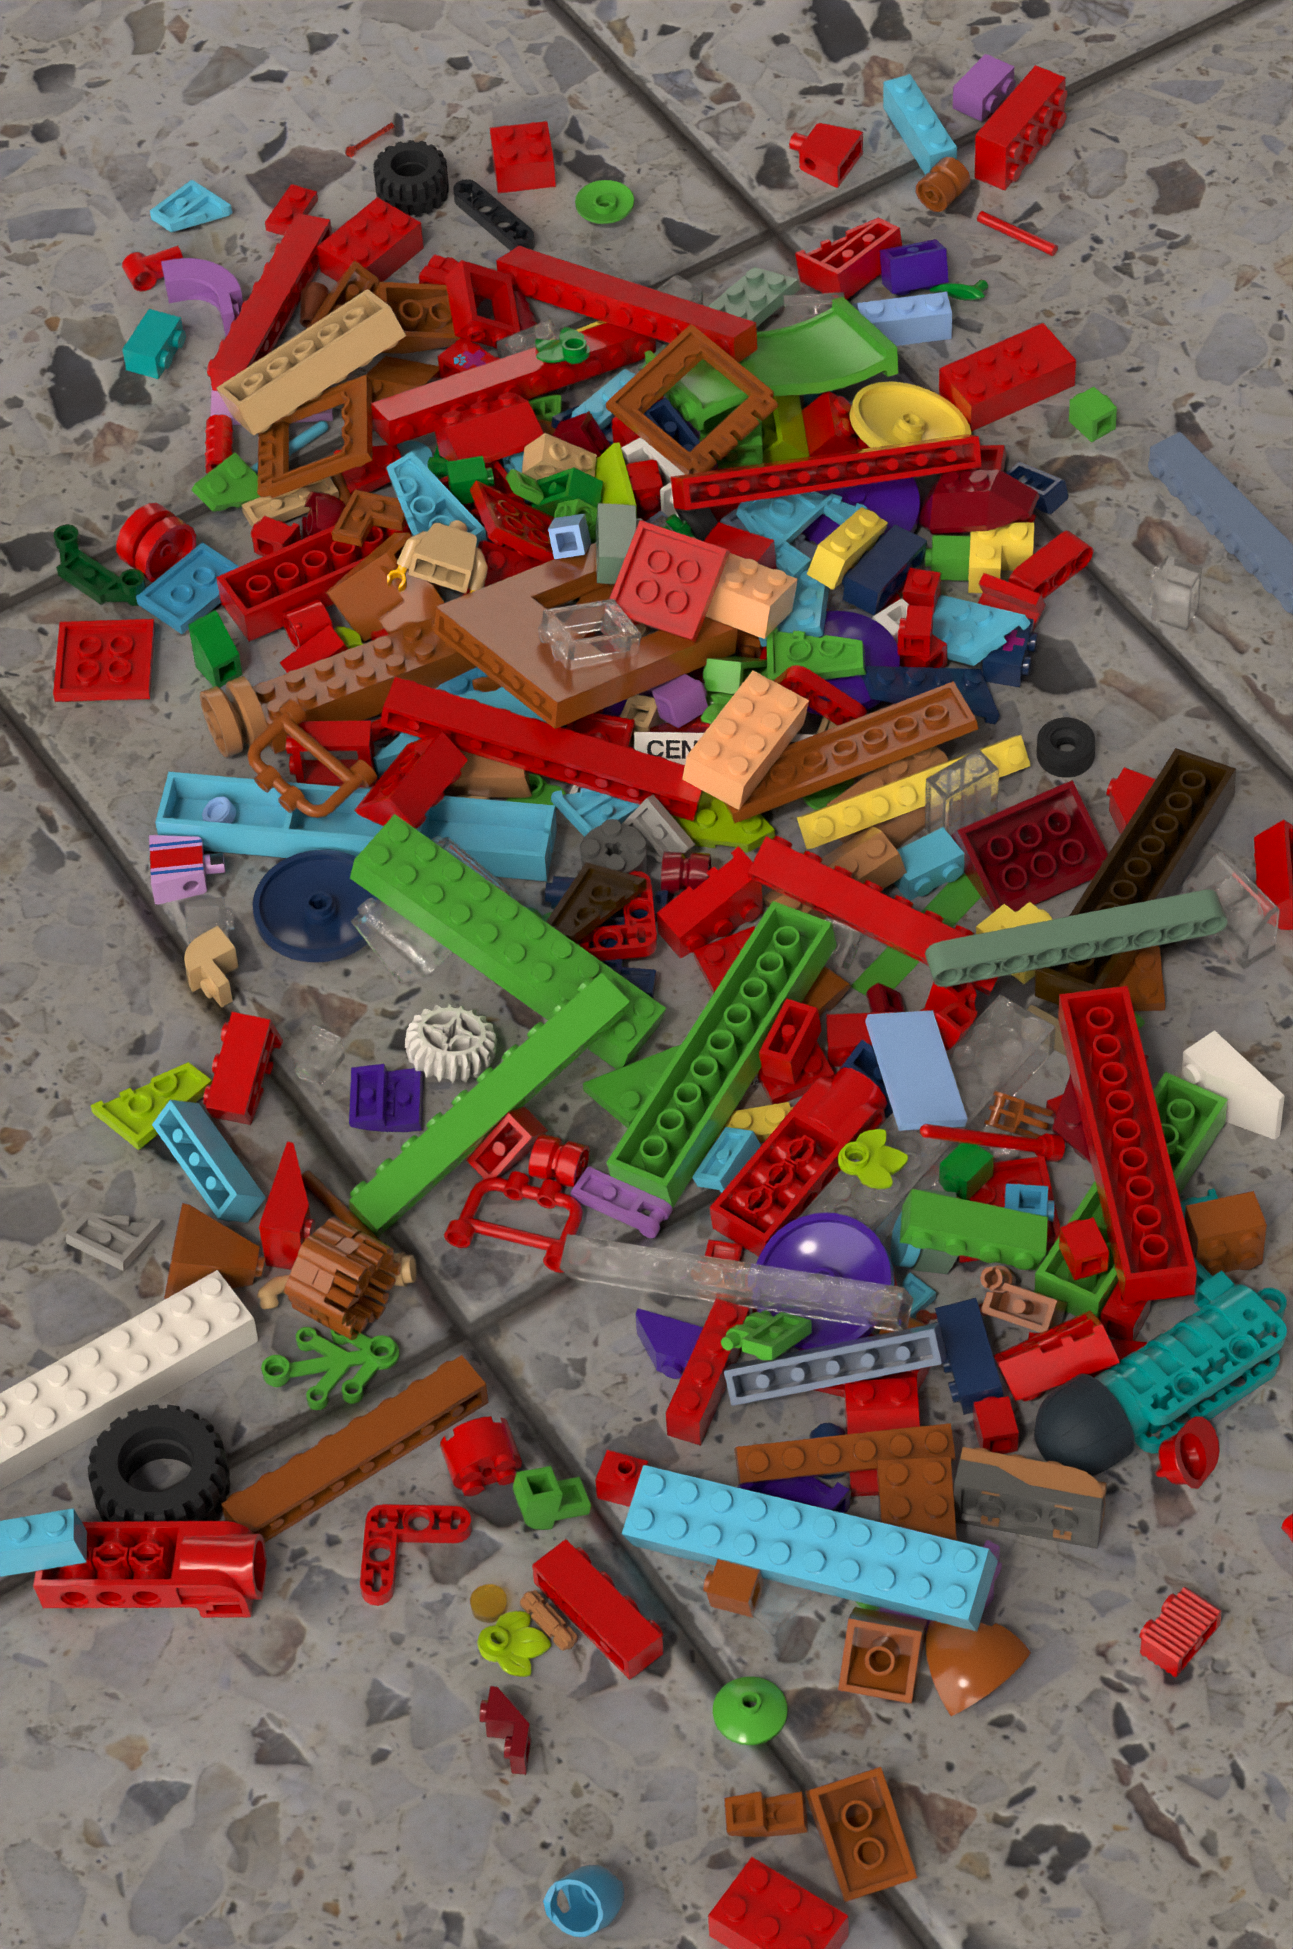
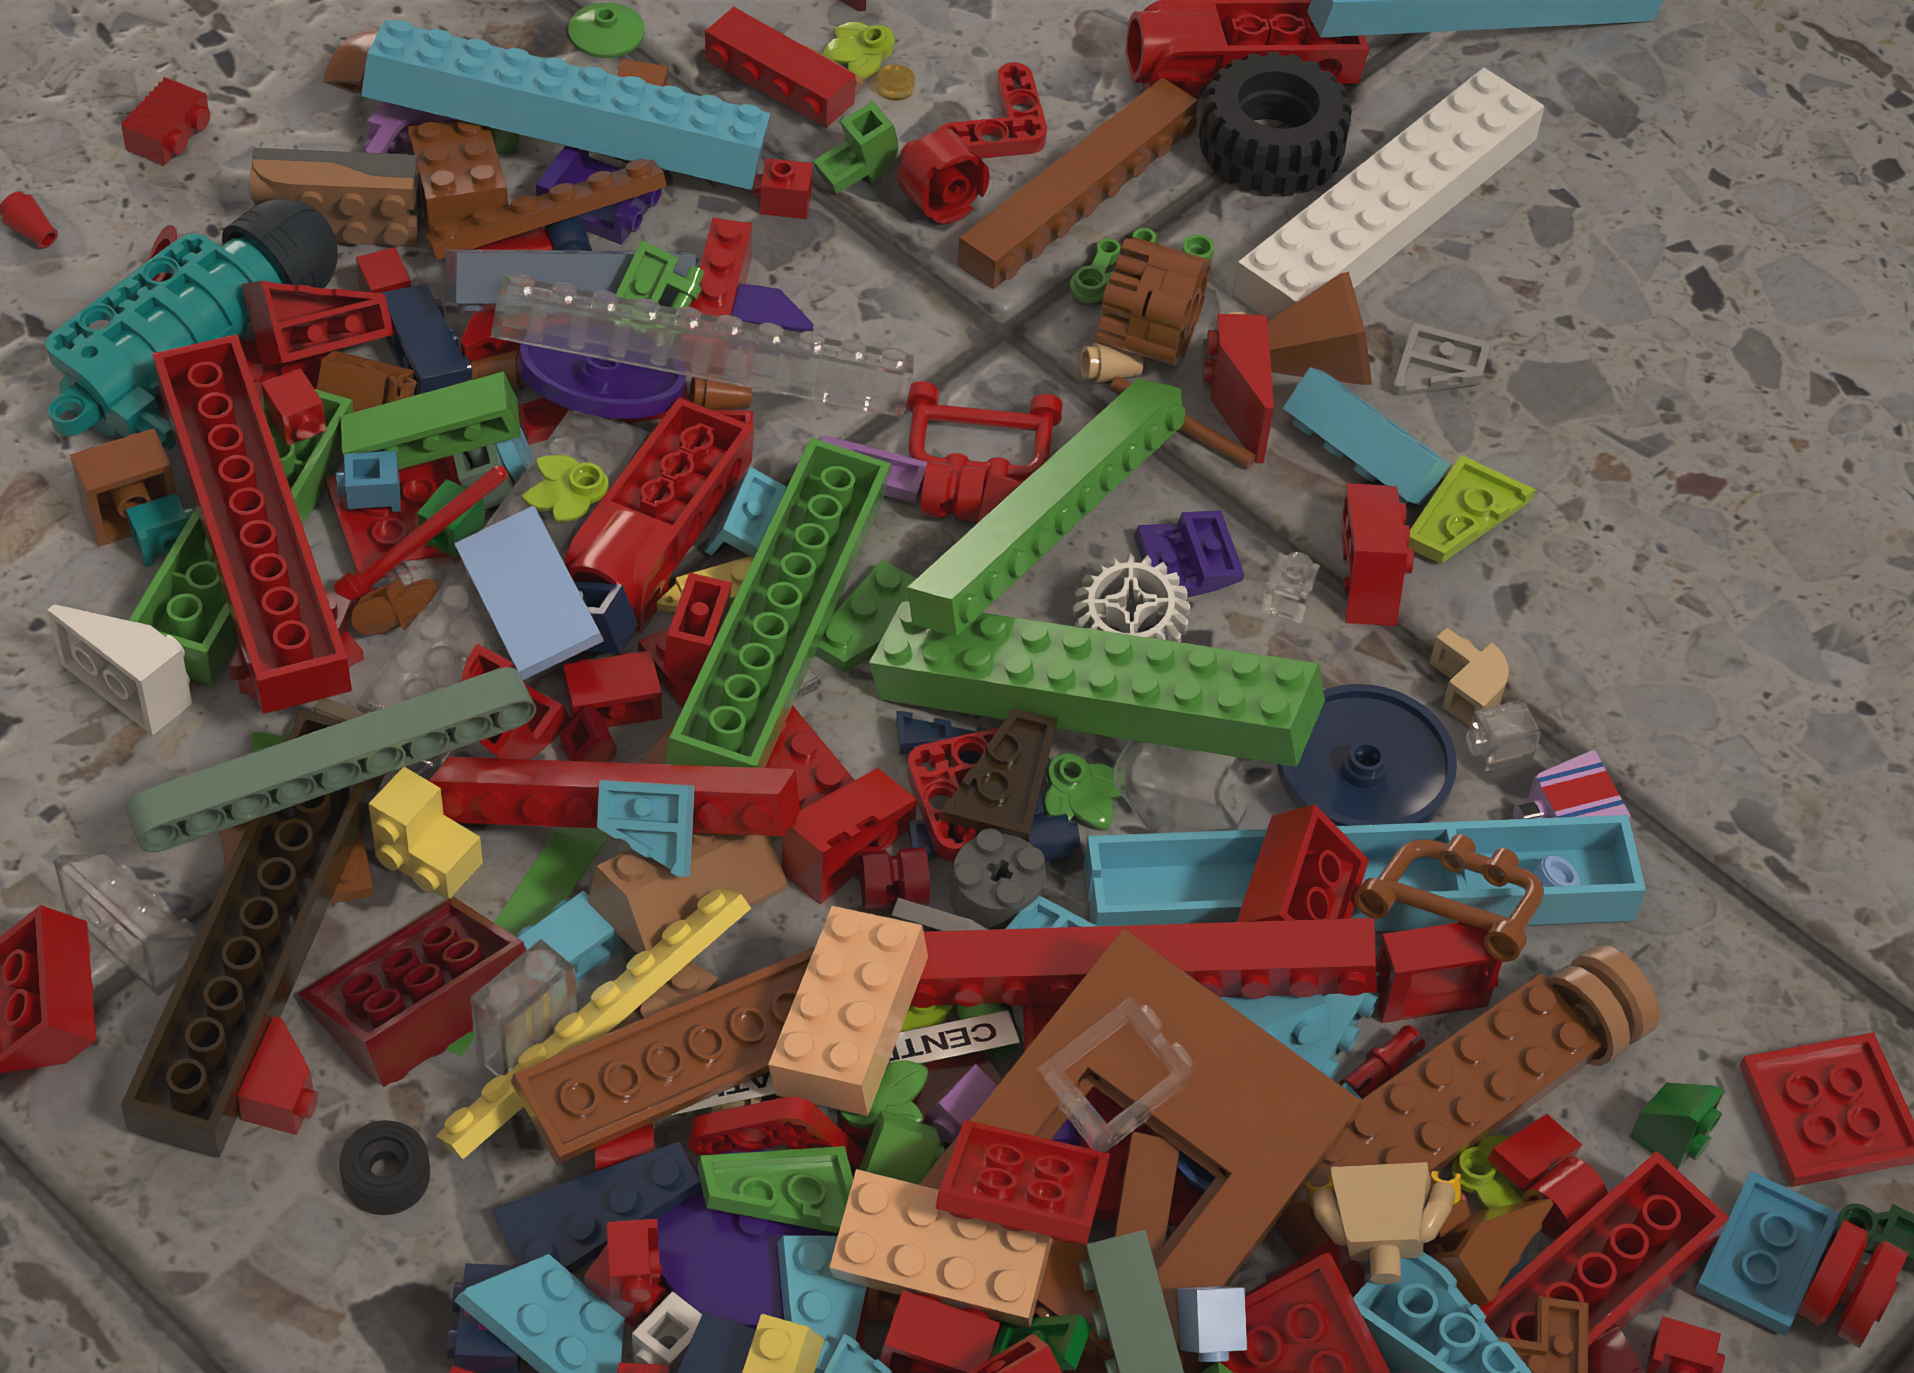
camera: 160 degrees right, 0 degrees up
(861, 859) = (651, 819): none -> medium azure wing

